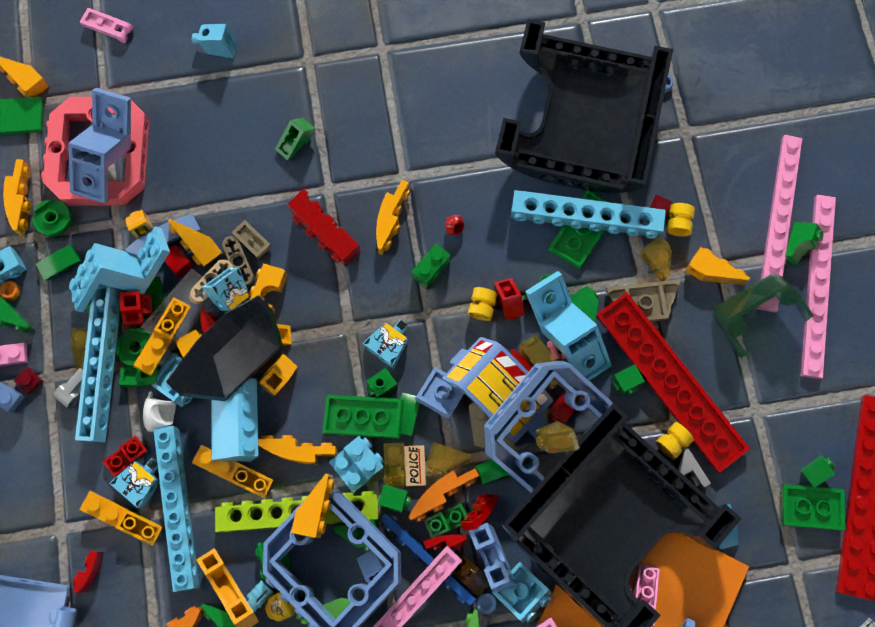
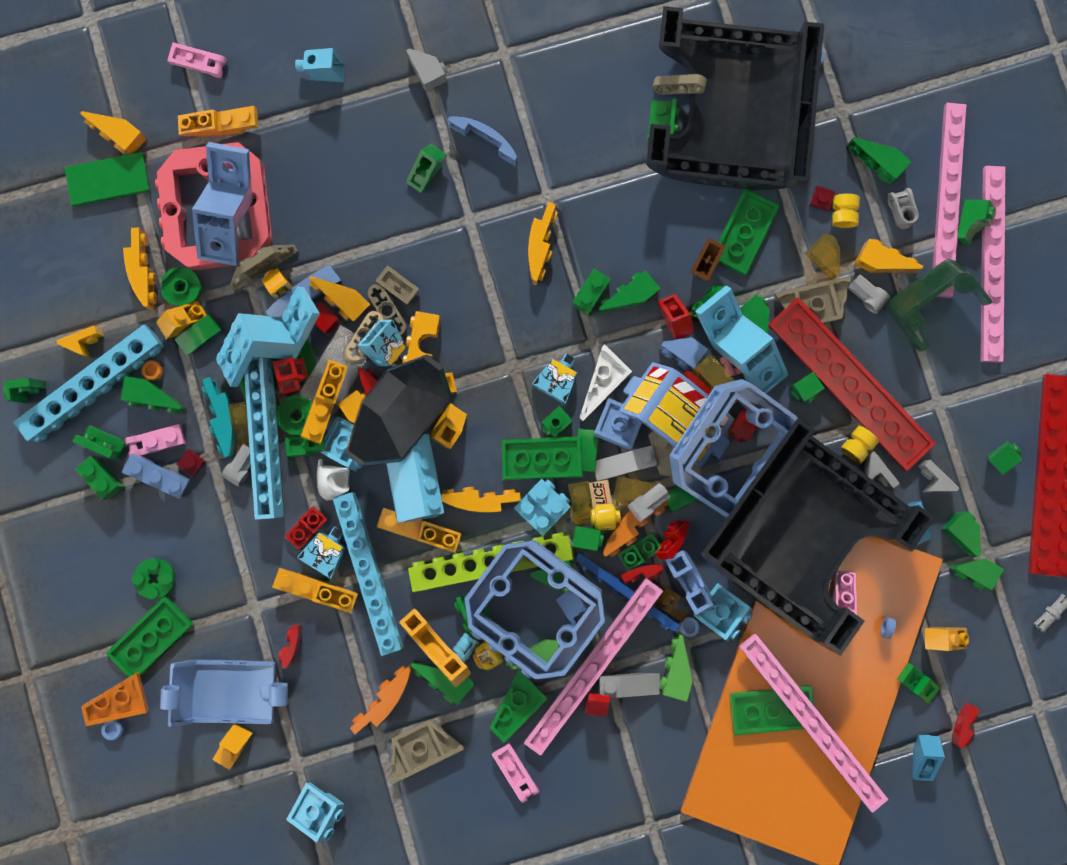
camera: 10 degrees left, 10 degrees up
(42, 245) = (179, 319): none -> light orange slope
(62, 347) = (221, 425): none -> teal slope
(114, 79) = (218, 123): none -> light orange slope
(121, 206) = (255, 267): none -> dark tan wing
(310, 53) = (427, 68): none -> light grey slope
(311, 513) = (509, 566): light orange slope -> none
(323, 228) = (472, 265): red wedge -> none
(338, 105) = (463, 126): none -> medium blue slope
(415, 480) = (605, 517): none -> yellow head
(437, 346) = (607, 376): none -> white wing
(443, 431) = (625, 463): none -> light grey slope
(454, 225) = (609, 244): red piece -> none
(454, 473) = (645, 504): none -> light grey piece
(473, 272) = (634, 294): none -> green slope
(482, 304) = (649, 326): yellow wheel -> none
(512, 330) = (685, 351): none -> medium blue slope
(521, 113) = (664, 114): none -> green bracket
(545, 248) = (707, 259): none -> reddish brown slope
(546, 90) = (679, 84): none -> dark tan beam
(556, 438) = (745, 460): clear yellow slope -> none
(653, 217) = (817, 212): medium azure brick -> none
(699, 302) = (872, 297): none -> light grey piece
(720, 178) = (884, 160): none -> green slope
(735, 220) = (901, 204): none -> light grey piece
(752, 487) = (940, 481): none -> light grey slope
(773, 541) = (964, 532): none -> green slope
(785, 583) = (979, 571): none -> green slope
(813, 507) = (1001, 493): green plate -> none

